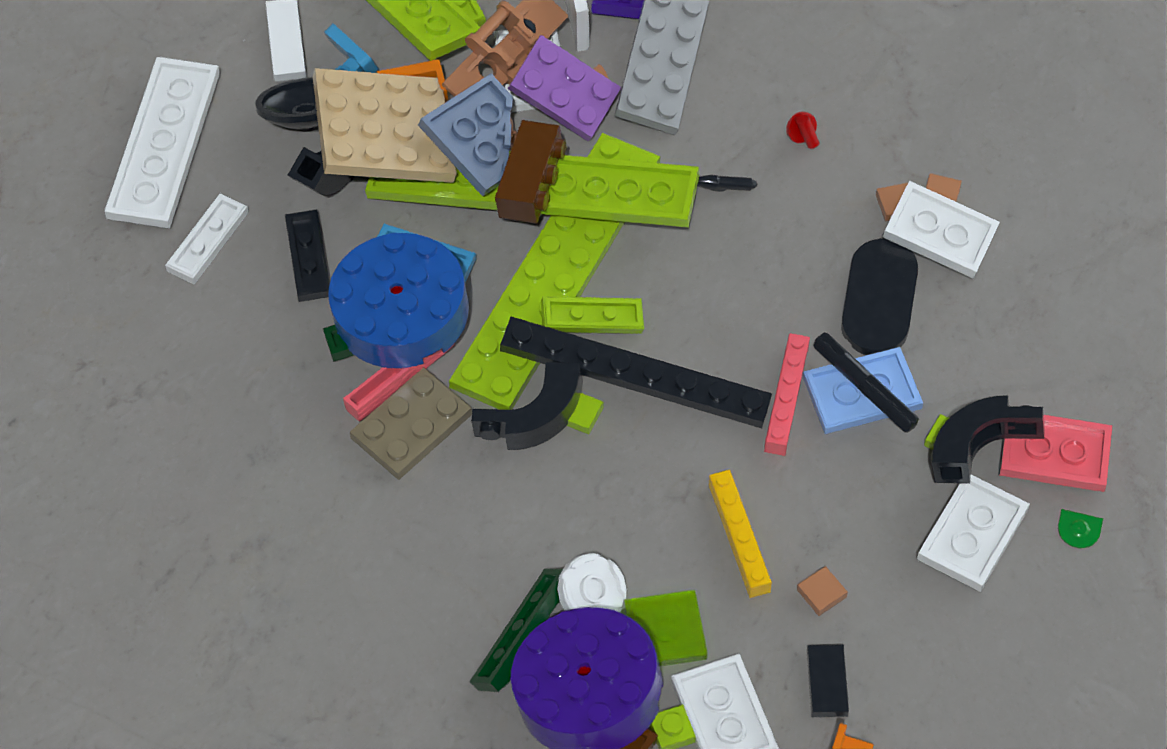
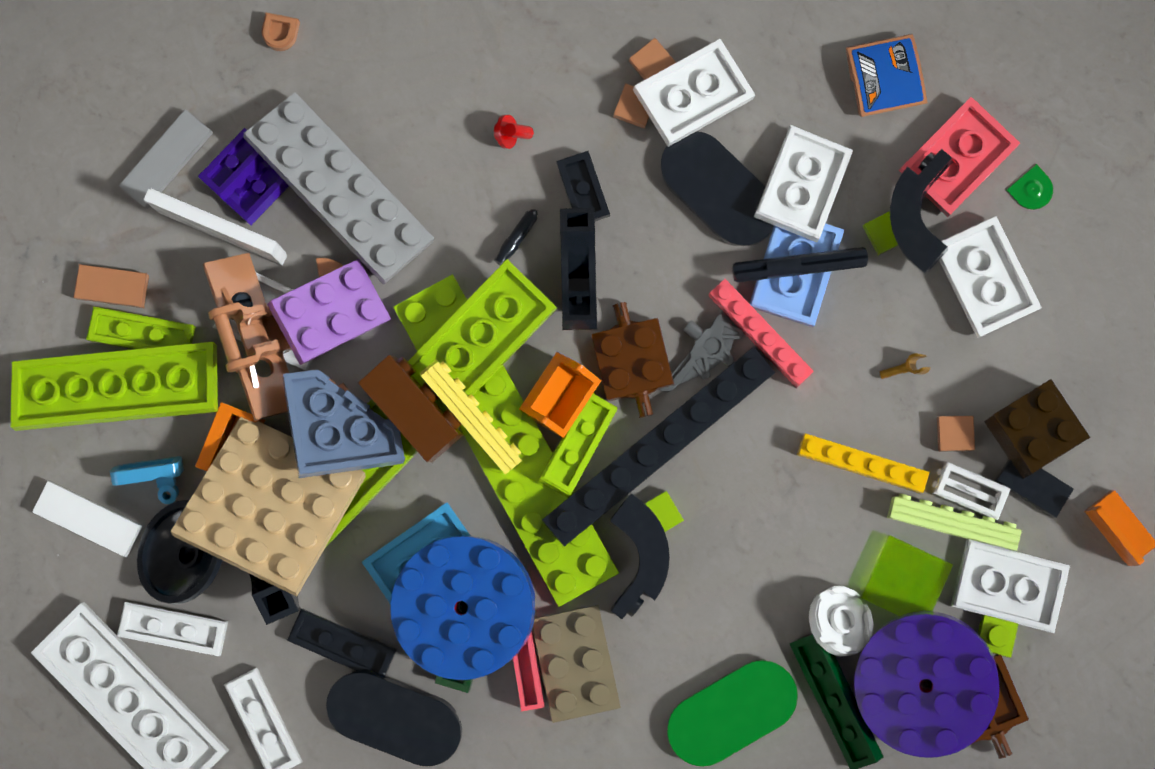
camera: 55 degrees left, 25 degrees up
(239, 139) = (172, 628): none -> white tile
(274, 319) = (394, 718): none -> black tile
(453, 561) = (732, 713): none -> green tile
(554, 216) = (467, 412): none -> light yellow piece
(622, 276) = (560, 394): none -> orange panel
(691, 317) = (632, 359): none -> reddish brown plate
(736, 232) = (578, 269): none -> black arch
(743, 633) = (954, 523): none -> yellowish green piece
(745, 367) = (709, 350): none -> dark grey piece
(788, 660) = (944, 480): none -> white tile
(799, 202) = (583, 184): none -> black plate
(852, 519) = (908, 366): none -> pearl gold hand
(874, 641) = (1037, 429): none -> dark brown brick
(935, 349) = (803, 183): none -> white tile
(1075, 358) = (886, 75): none -> slope

